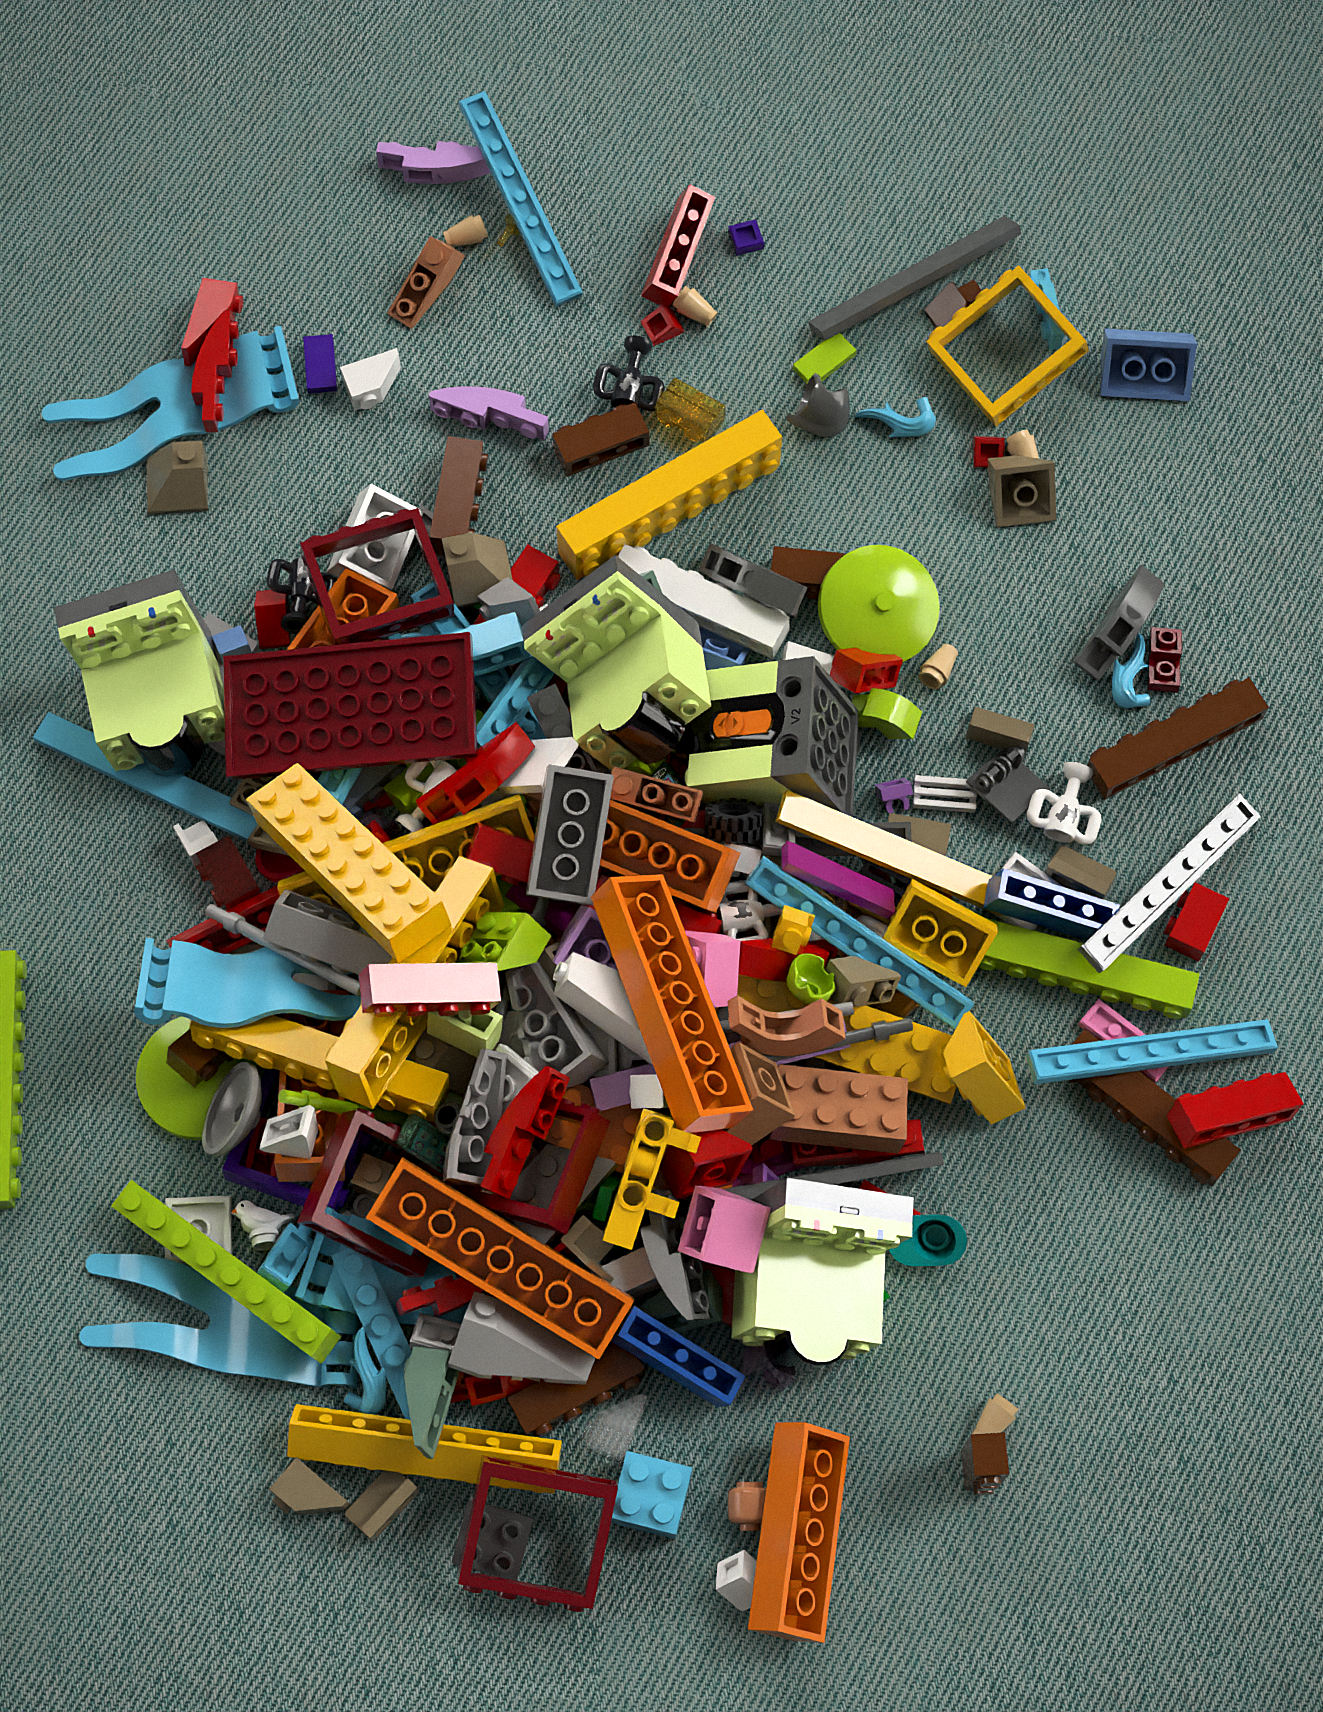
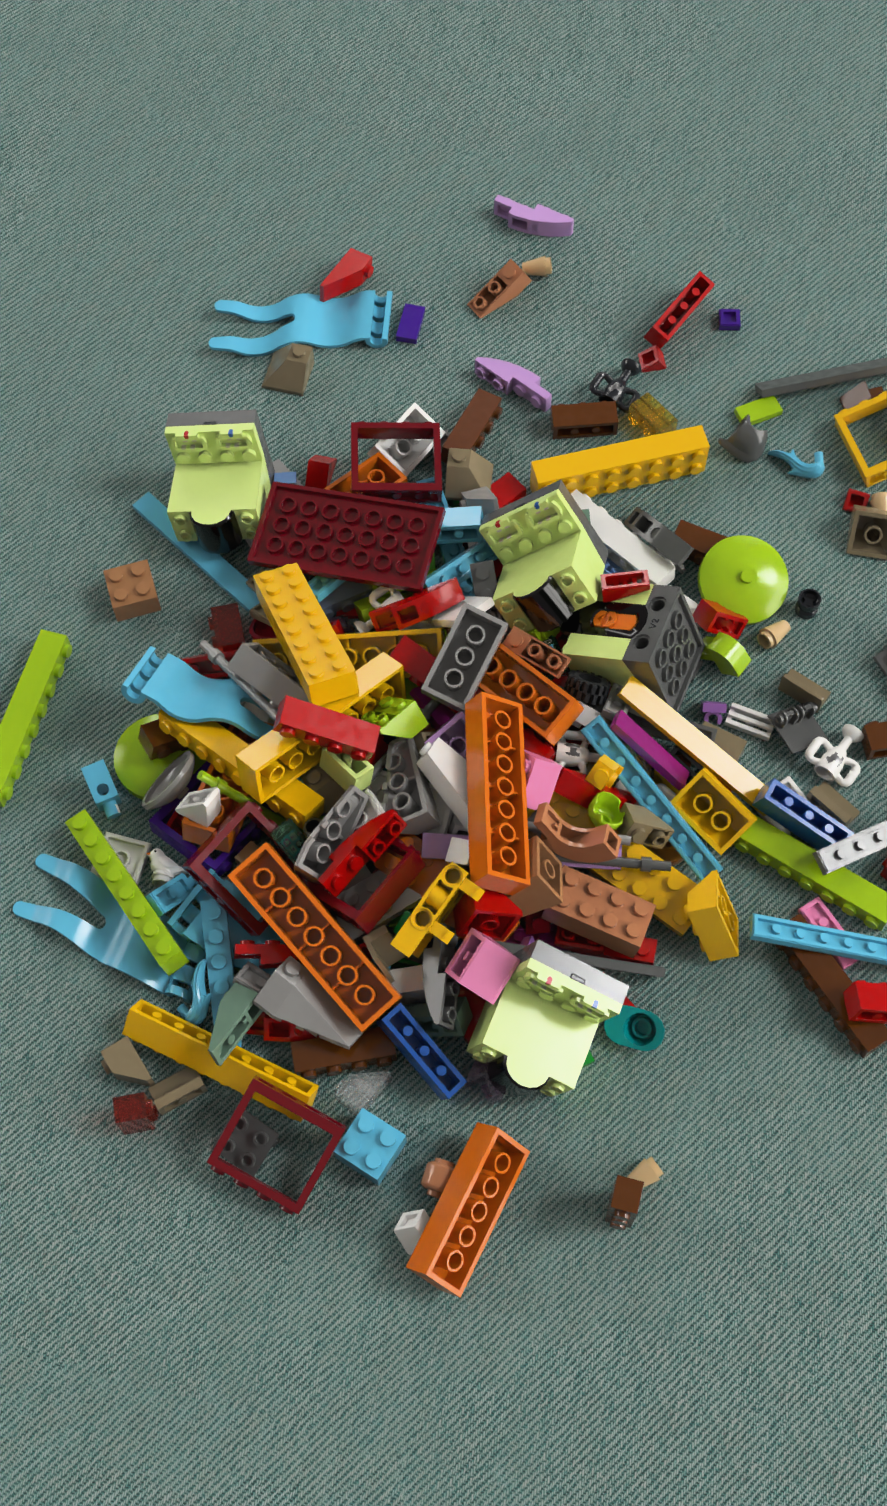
camera: 20 degrees right, 5 degrees down
(79, 859) = (132, 590): none -> medium nougat brick
(133, 1135) = (101, 782): none -> medium azure torso
(195, 839) = (214, 599): white panel -> none
(212, 366) = (337, 303): red slope -> none
(298, 588) = (342, 458): black piece -> none
(343, 1551) = (135, 1113): none -> clear red brick
(370, 378) = (441, 340): white slope -> none
(511, 229) = (572, 274): clear yellow hand -> none
(520, 198) = (581, 254): medium azure tile -> none
(694, 306) = (678, 353): tan cone -> none
(733, 684) = (616, 586): none -> red slope
(970, 606) = (807, 603): none -> black wheel

